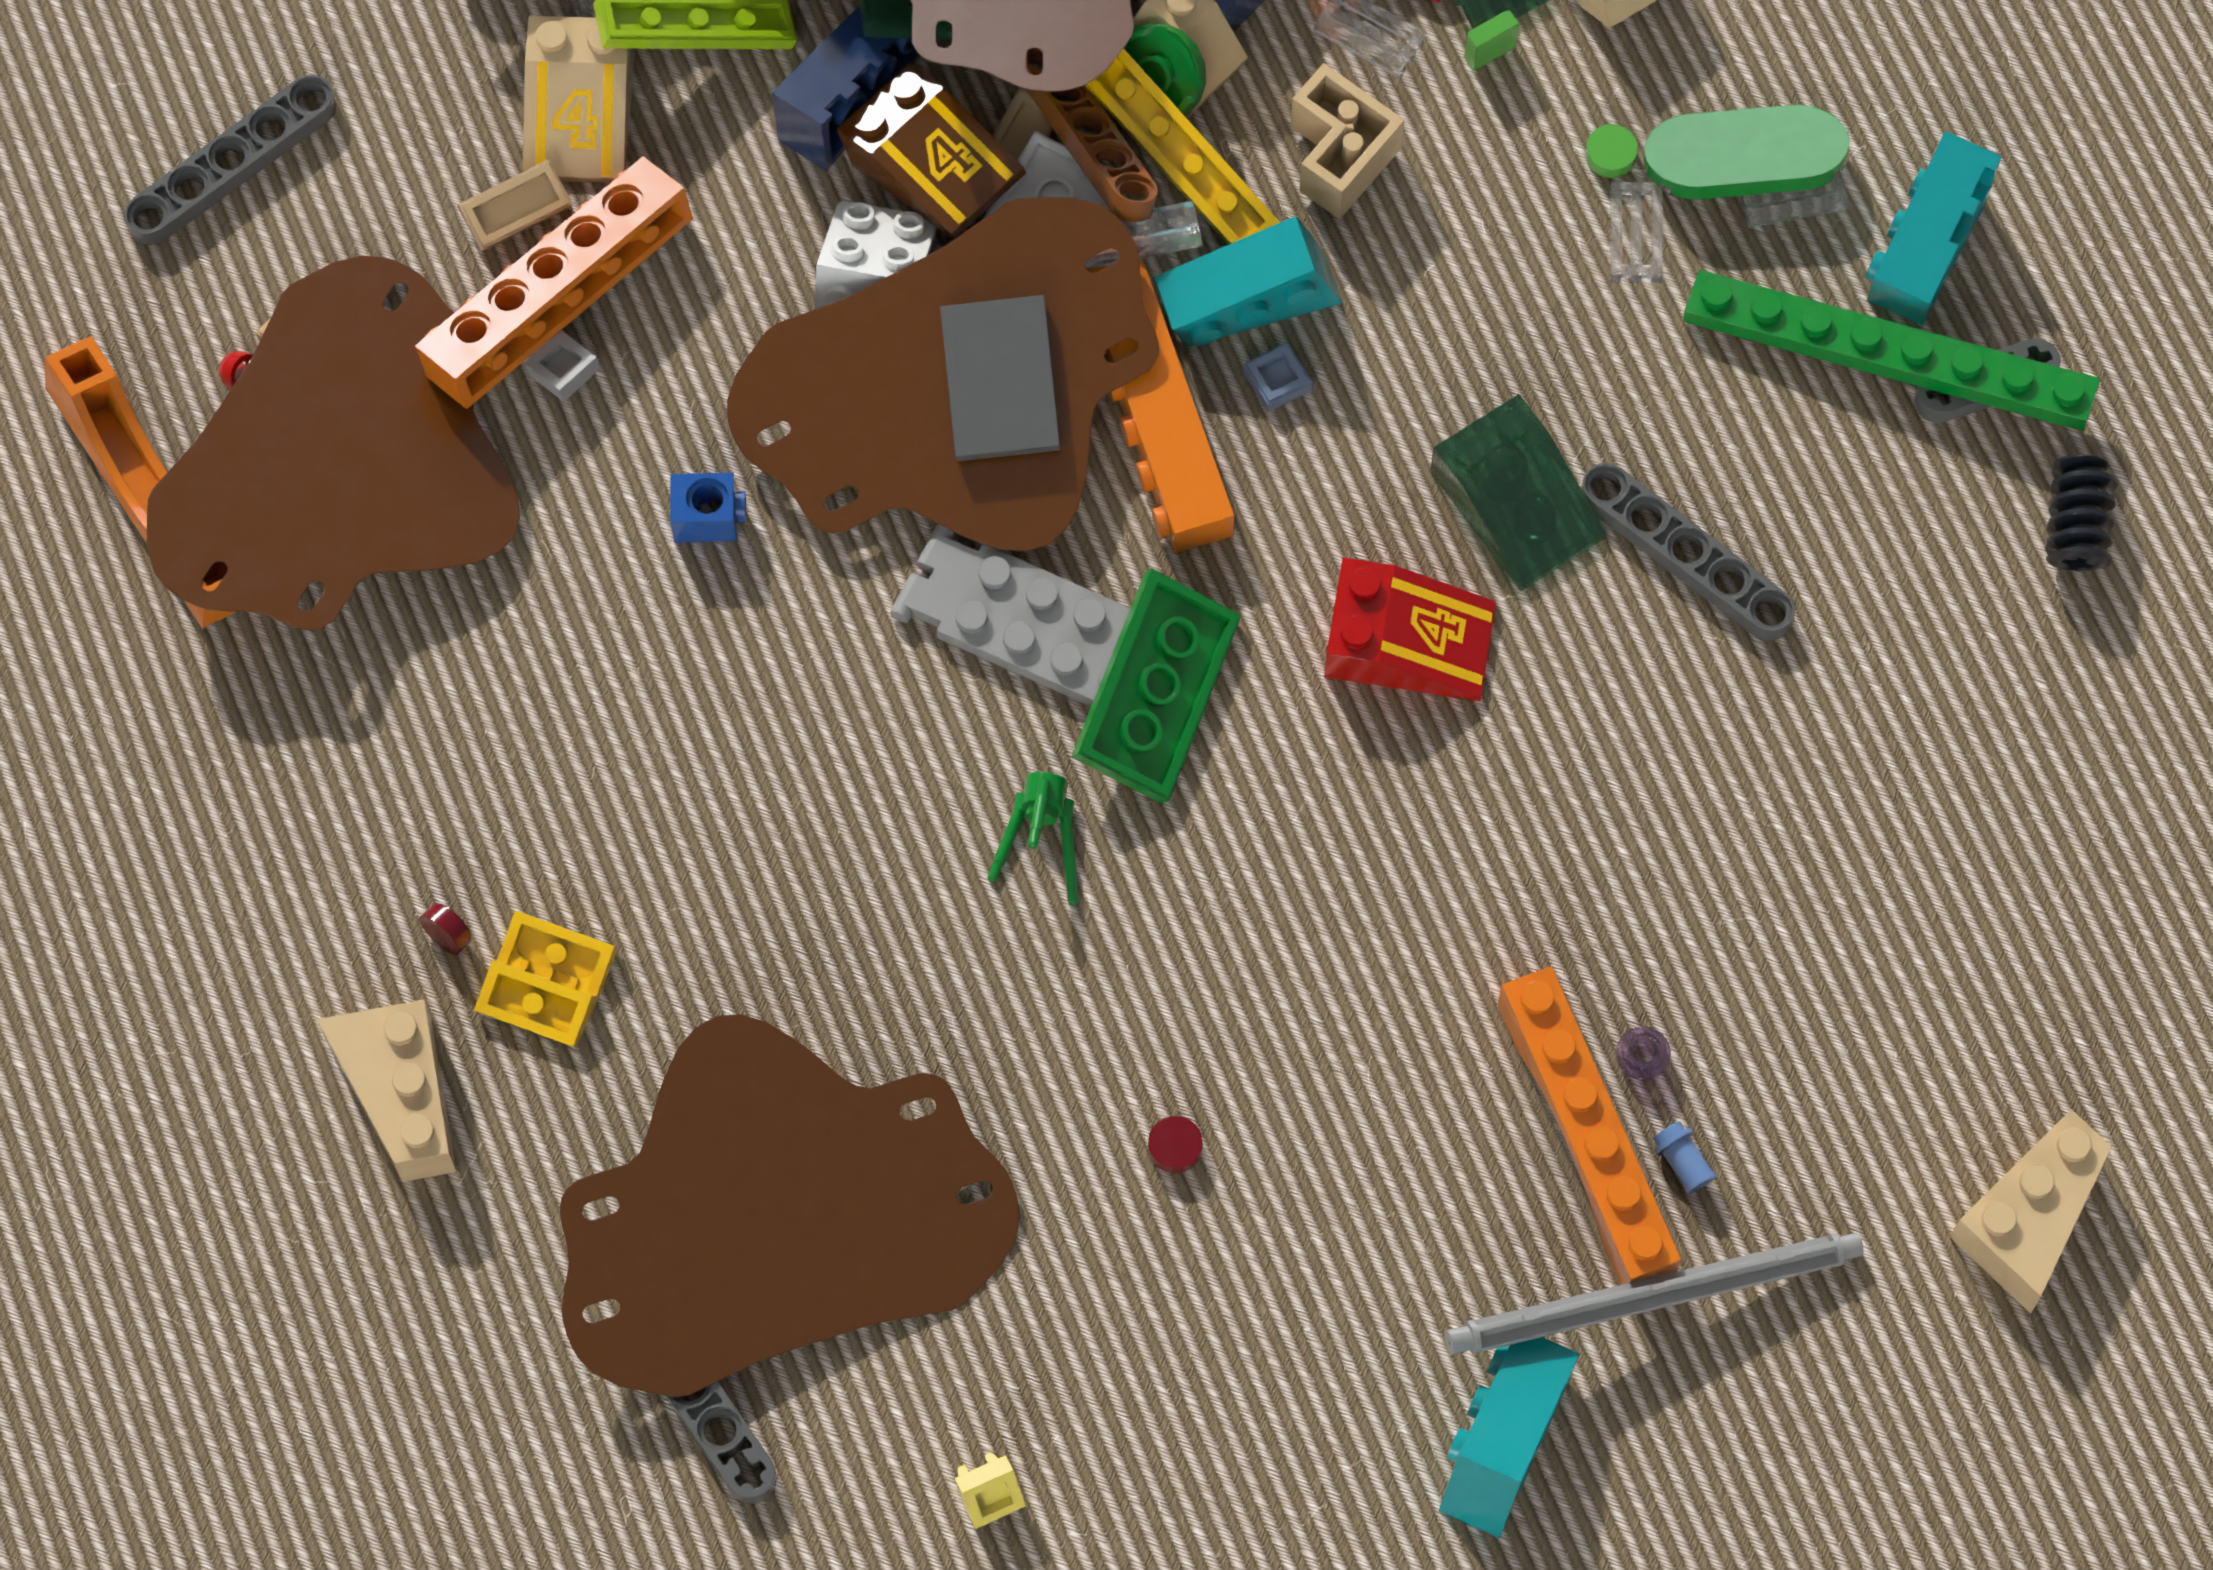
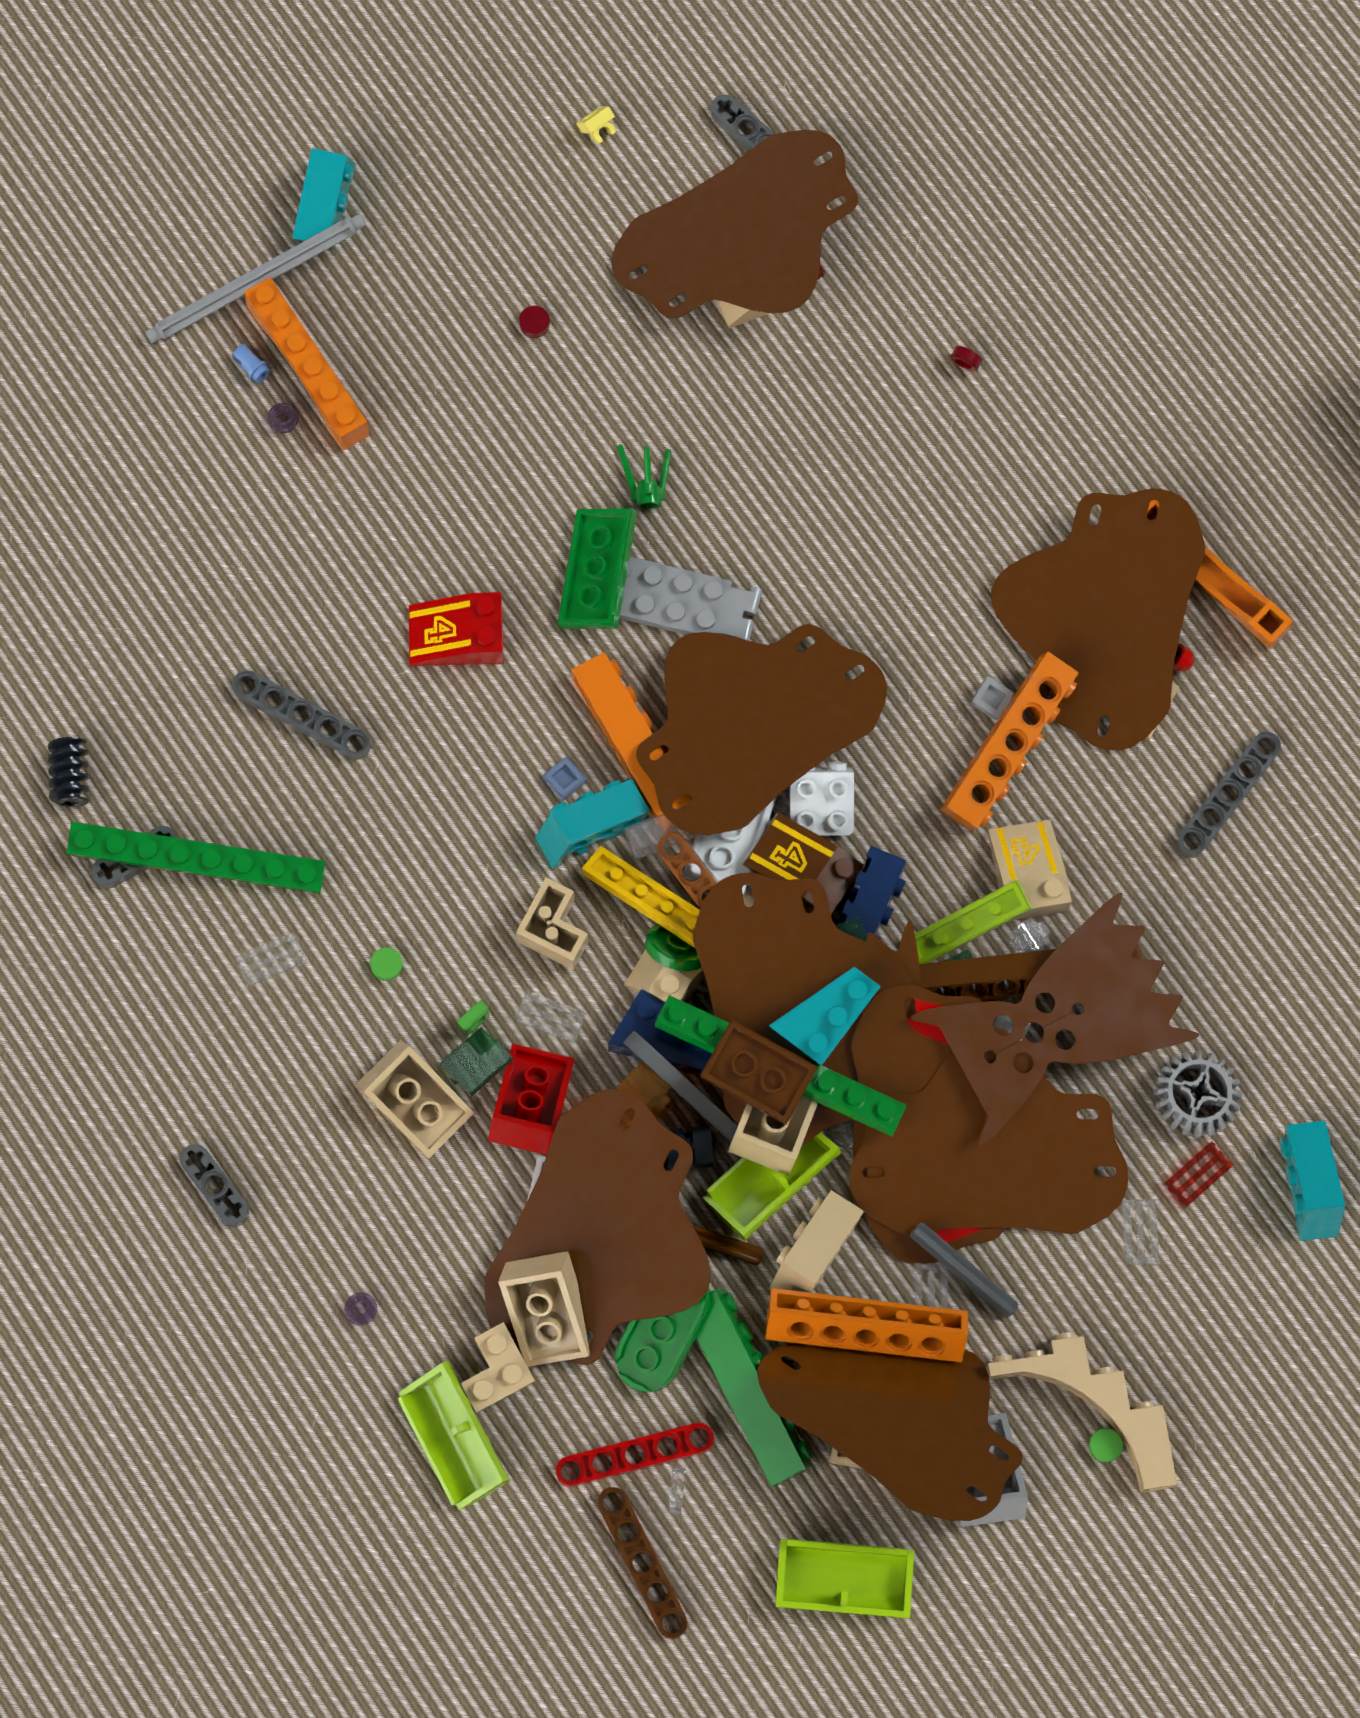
camera: 165 degrees right, 5 degrees up
(398, 1081) = (969, 267): tan wedge -> none
(515, 205) = (1048, 796): tan tile -> none
(546, 979) = (903, 346): yellow slope -> none
(694, 489) = (891, 615): blue brick -> none
(1000, 378) = (727, 719): dark grey tile -> none
(1516, 492) = (408, 728): clear green slope -> none
(1635, 269) = (367, 940): clear tile -> none
(1746, 151) = (302, 972): tile -> none
(1933, 228) = (181, 937): teal wedge -> none
(2032, 1209) = (52, 367): tan wedge -> none

